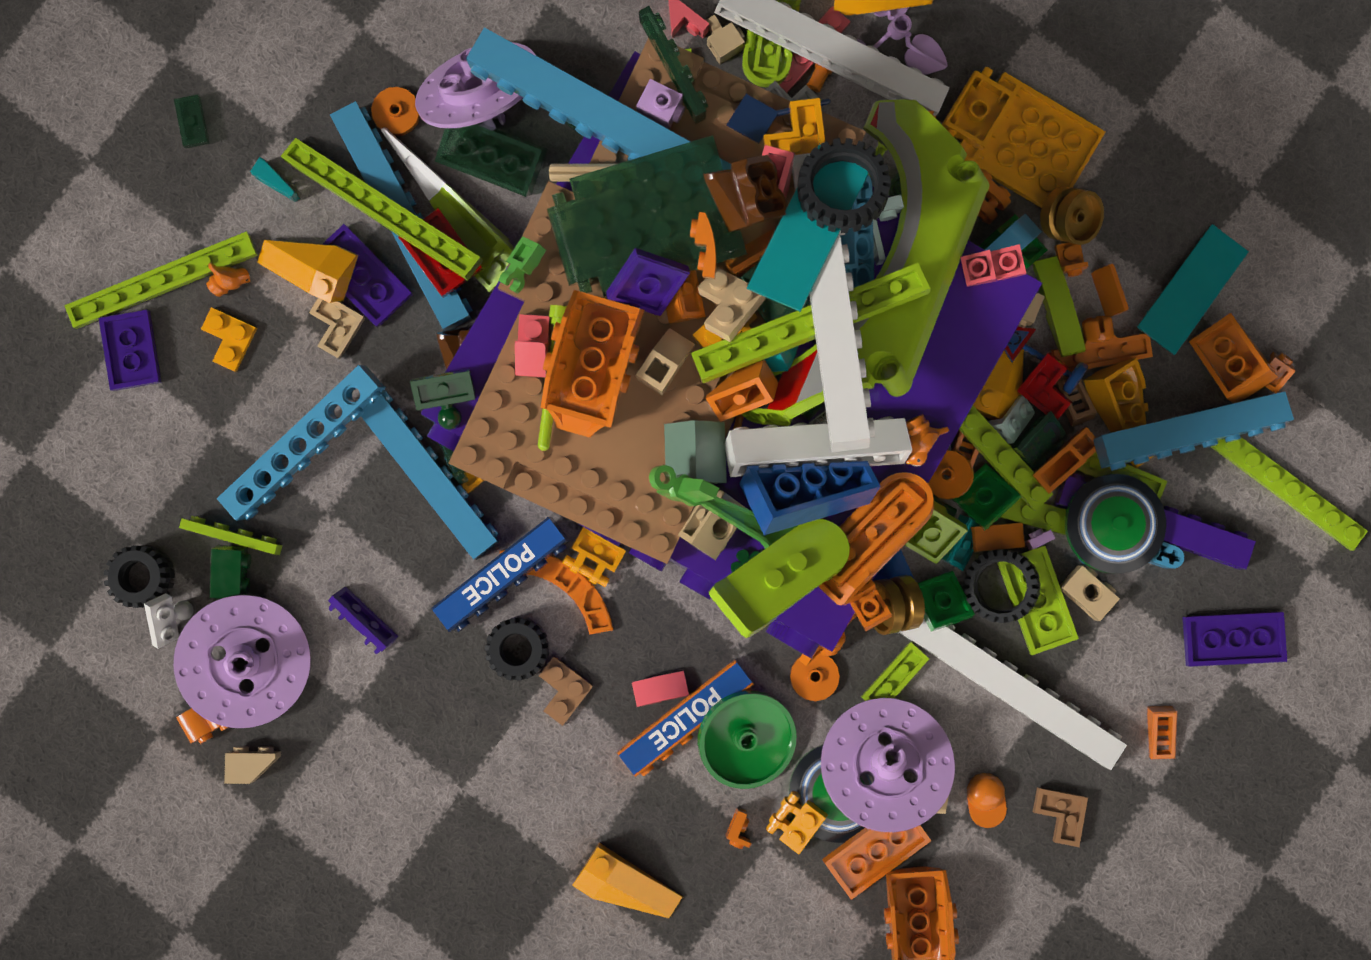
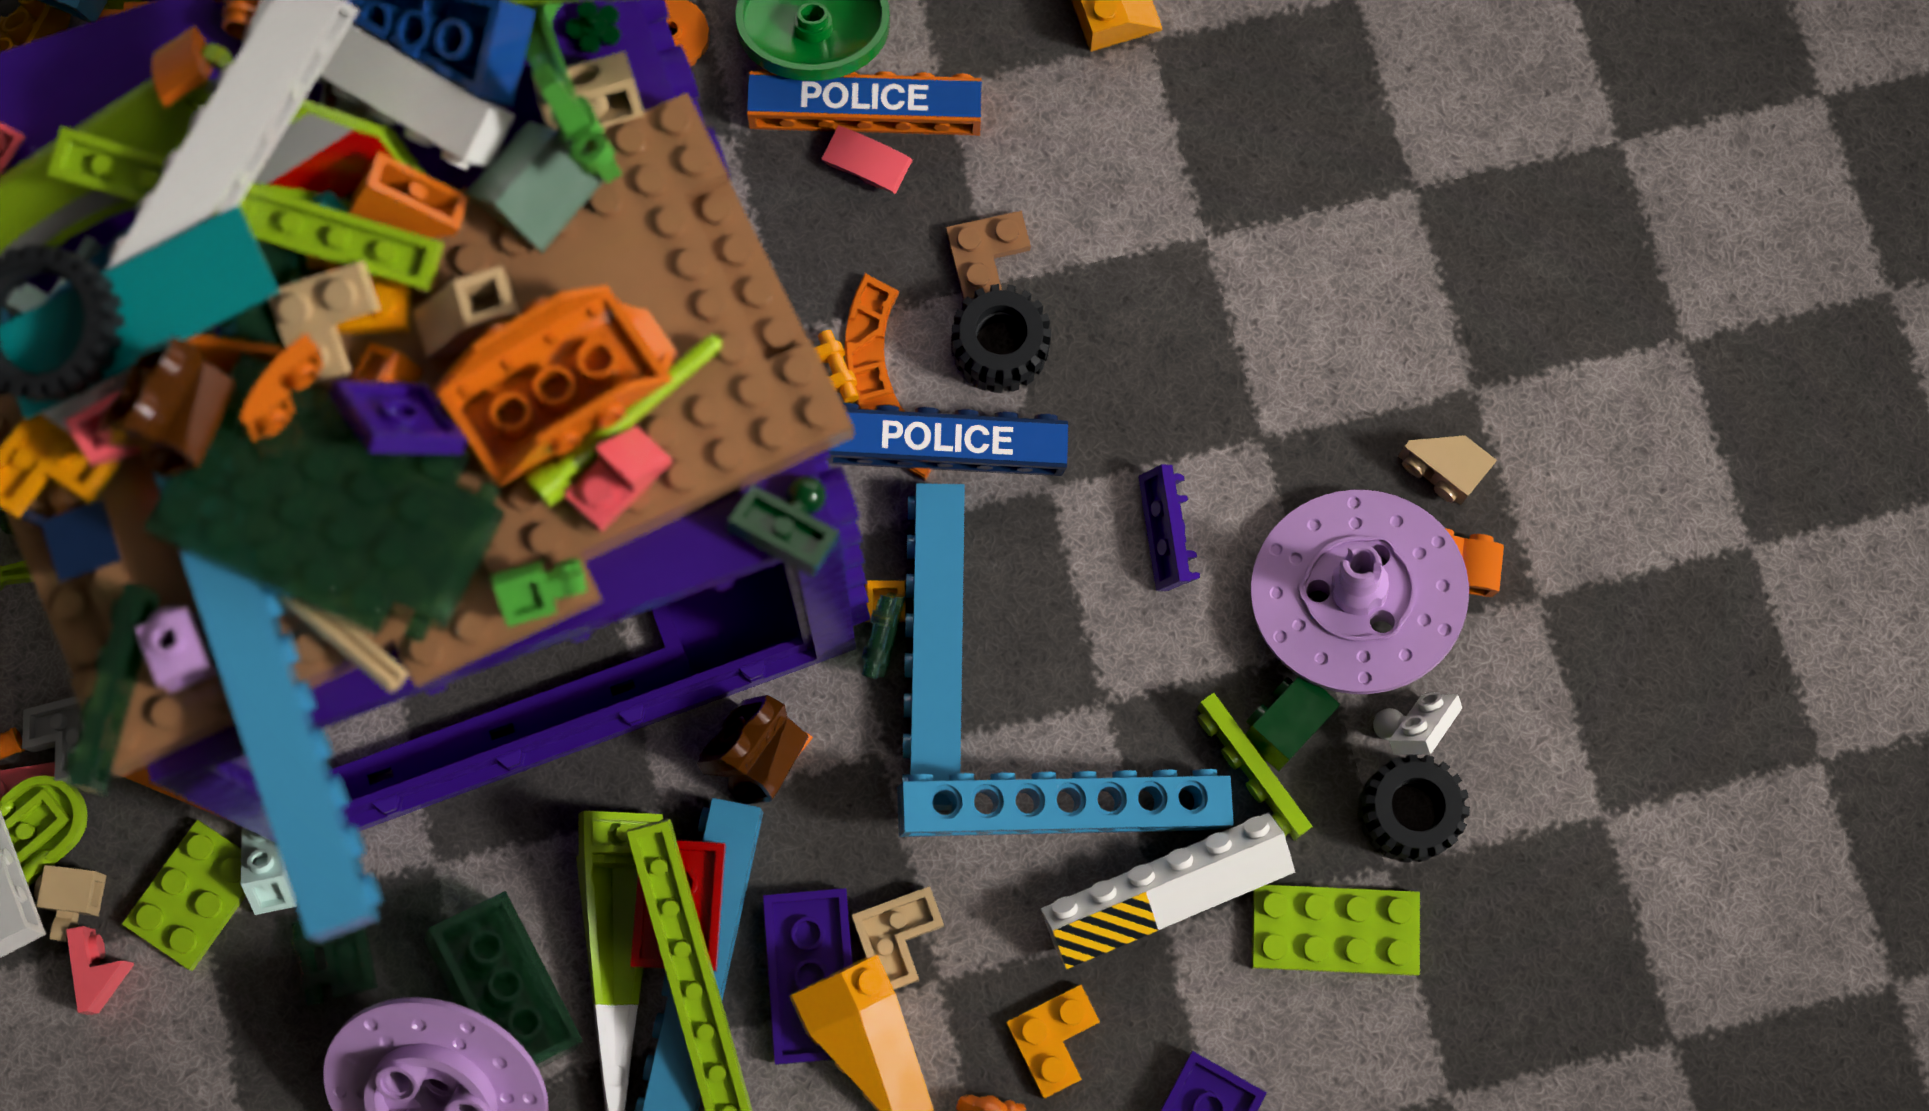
camera: 140 degrees left, 10 degrees down
(136, 492) = (1336, 930): none -> lime plate
(224, 445) = (1168, 890): none -> white brick
(902, 361) = (180, 66): none -> orange slope

